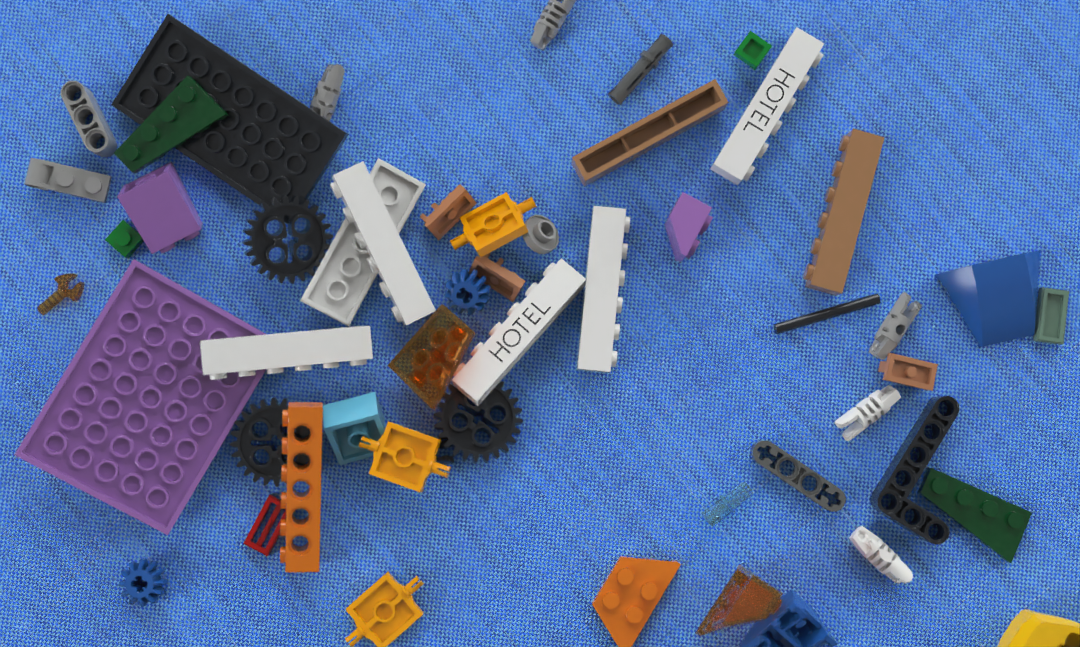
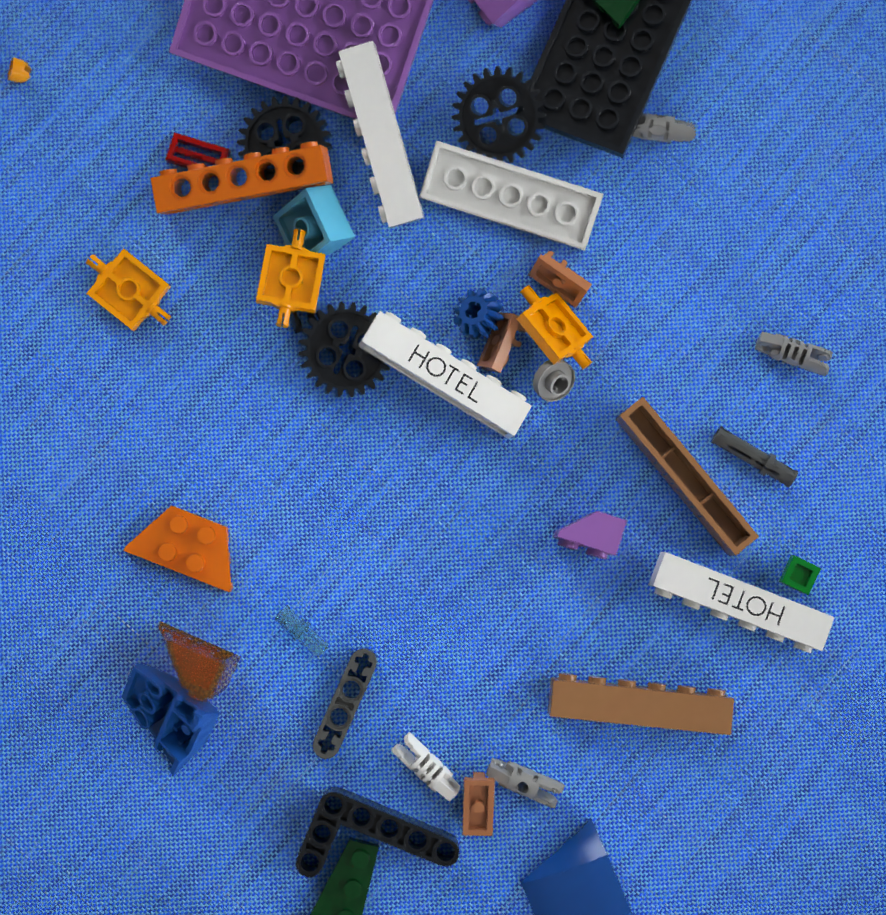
camera: 80 degrees right, 0 degrees up
(138, 591) = (107, 35): blue gear -> none
(383, 244) = (512, 214): white brick -> none
(433, 355) = (402, 288): clear orange wedge -> none
(602, 288) = (507, 456): white brick -> none
(827, 313) = (526, 705): black bar -> none
(880, 555) = (274, 806): white hinge -> none

